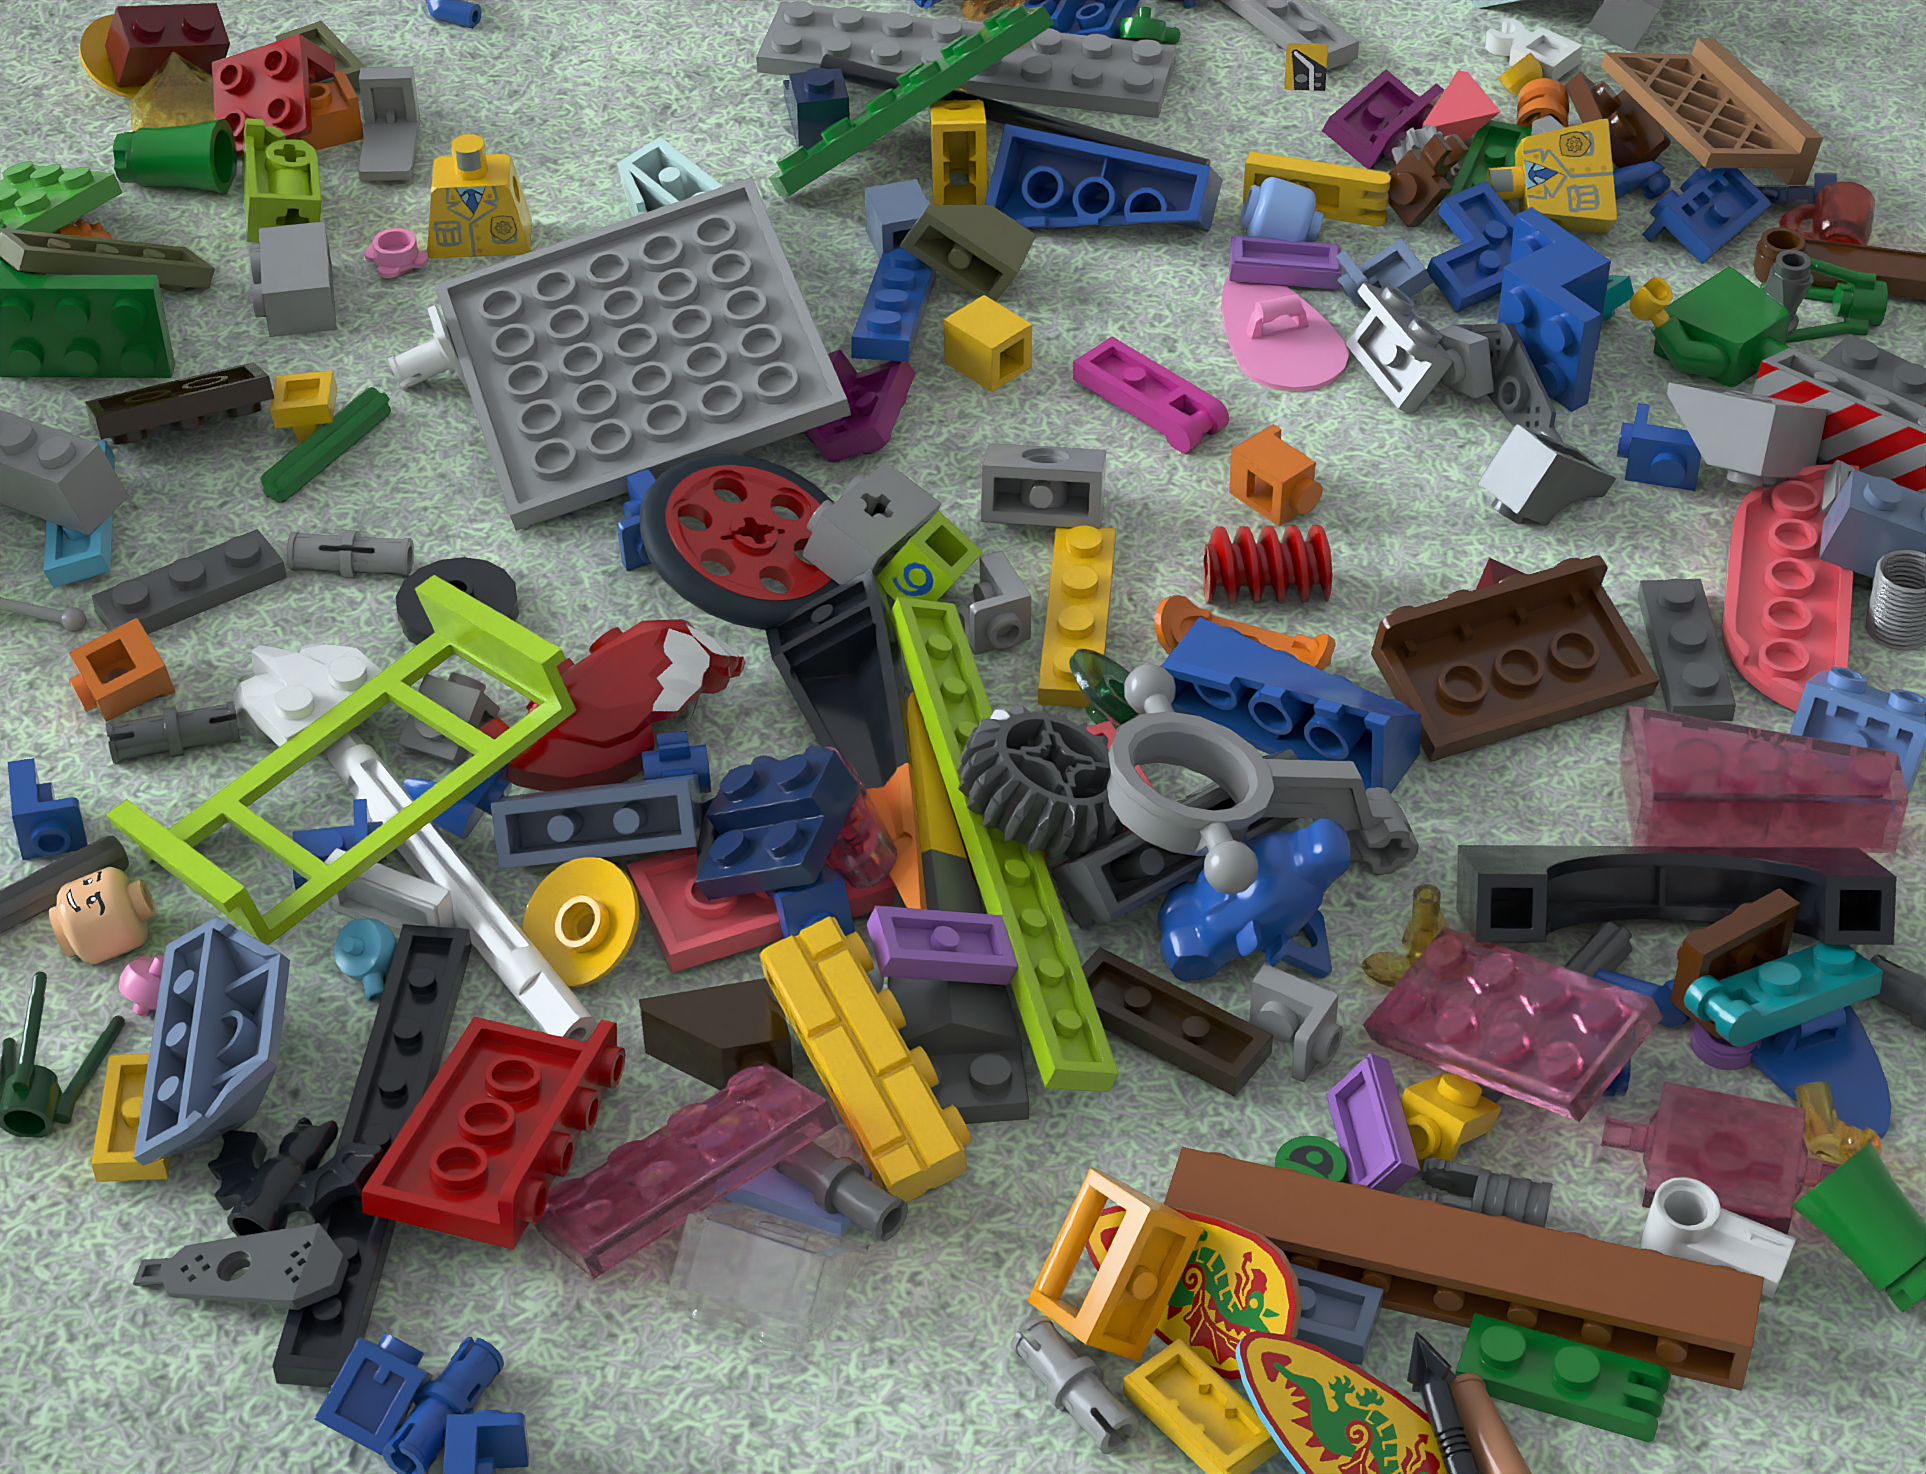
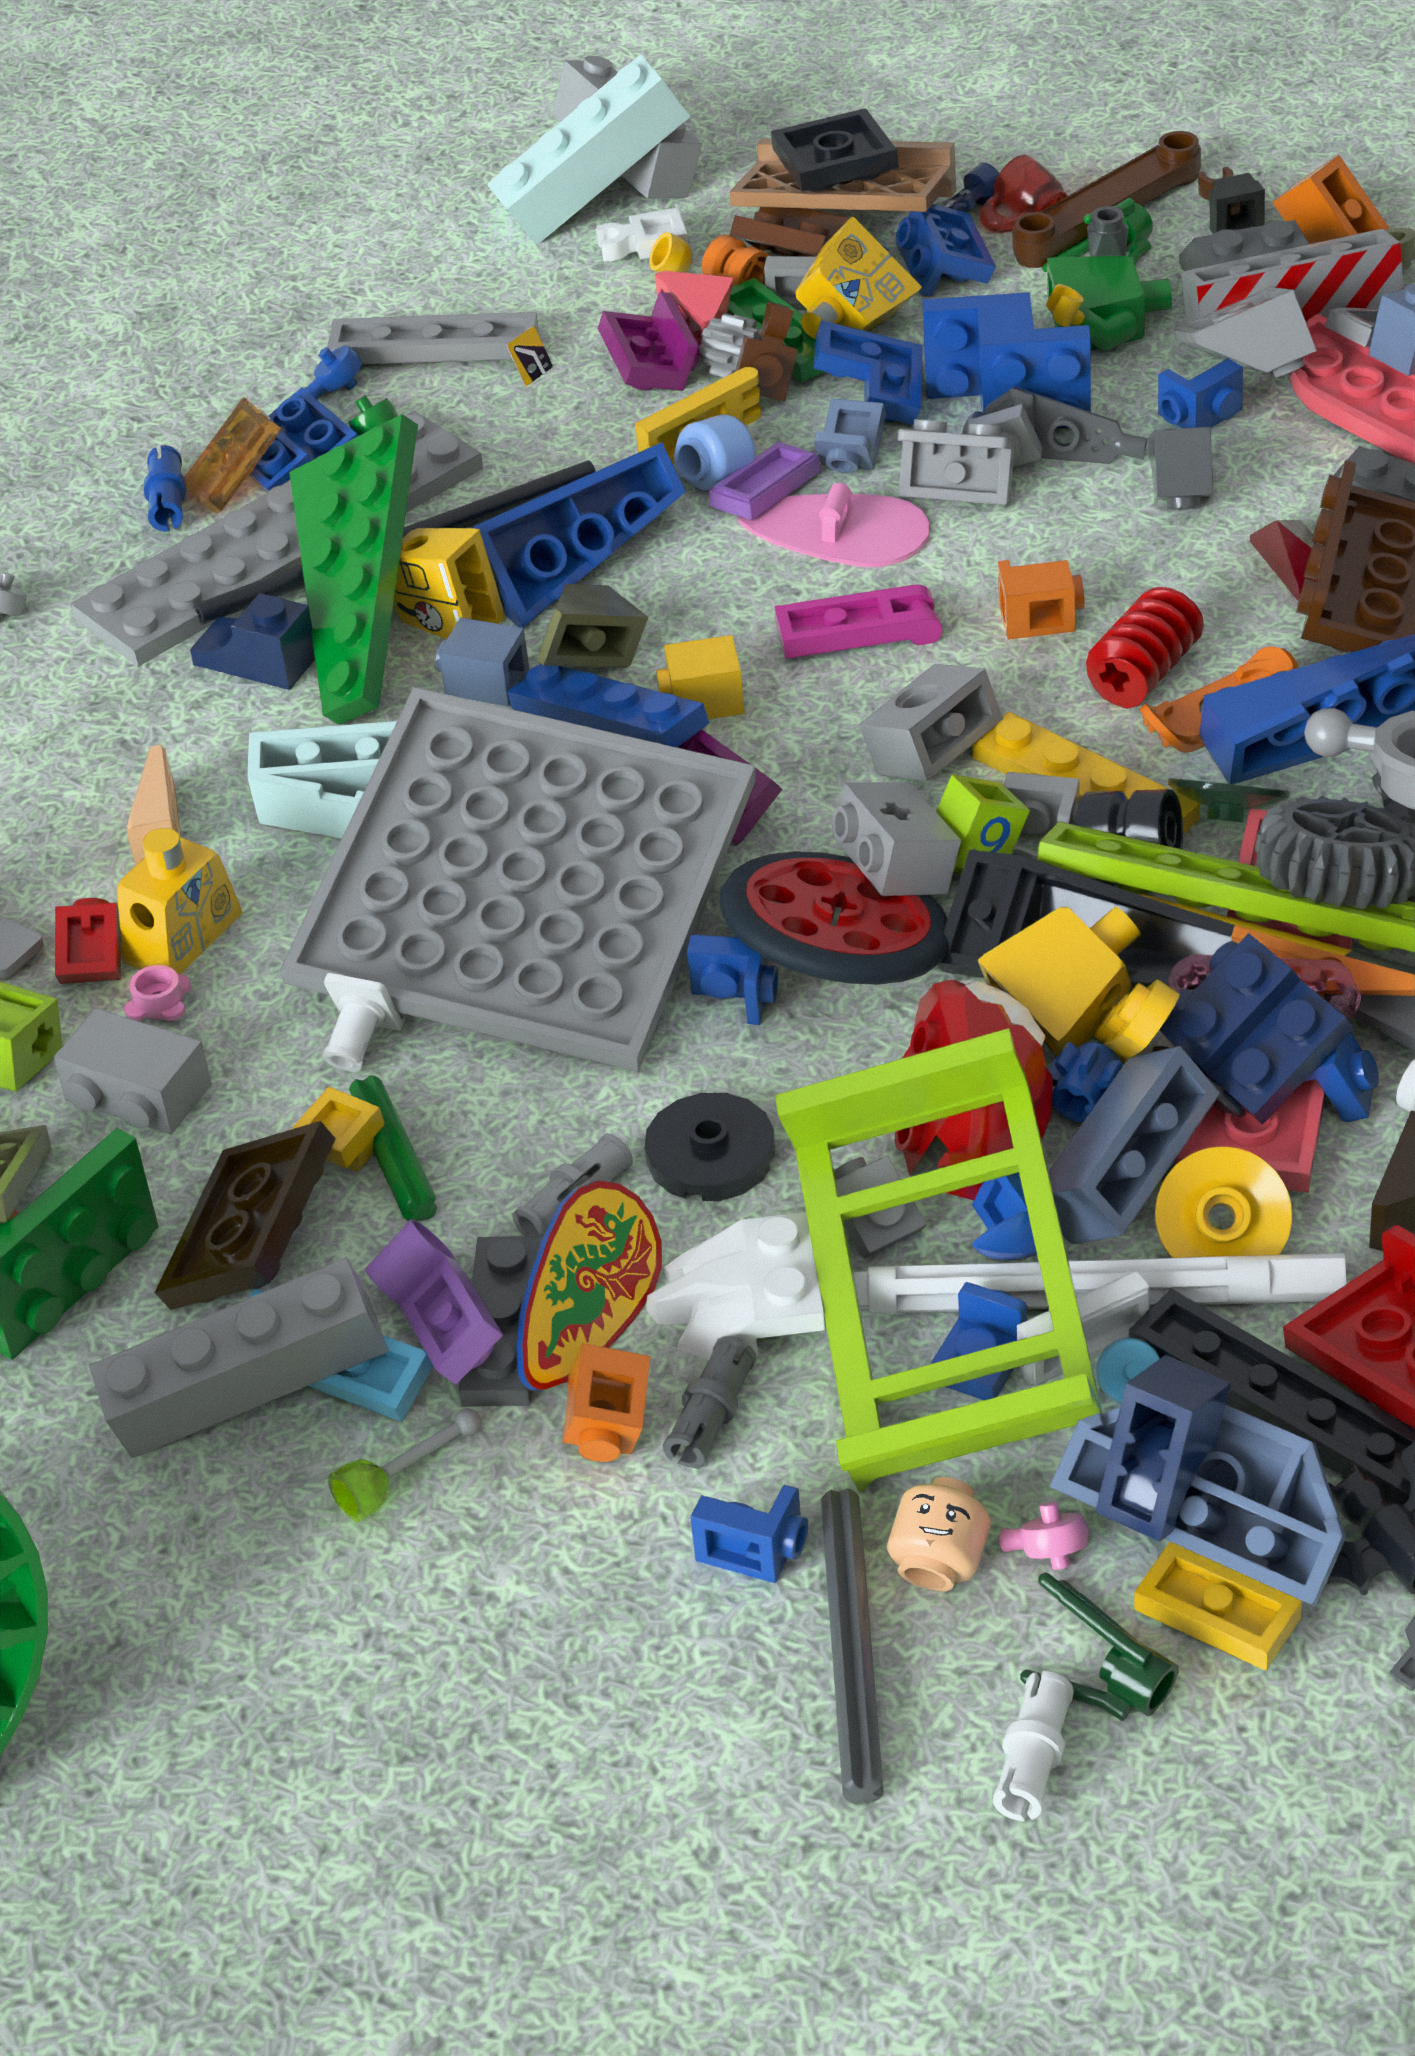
camera: 50 degrees left, 0 degrees up
(180, 516) = (436, 1299): none -> medium lavender plate
(198, 960) = (1159, 1441): none -> dark blue arch
(235, 597) = (586, 1280): none -> shield
(407, 192) = (87, 941): none -> red bracket
(554, 153) = (154, 801): none -> light nougat slope
(715, 745) = (1136, 1019): none -> yellow plate
(770, 696) = (1064, 972): none -> yellow torso
(1009, 656) = (1145, 816): none -> black wheel
(1708, 73) = (834, 150): none -> black plate

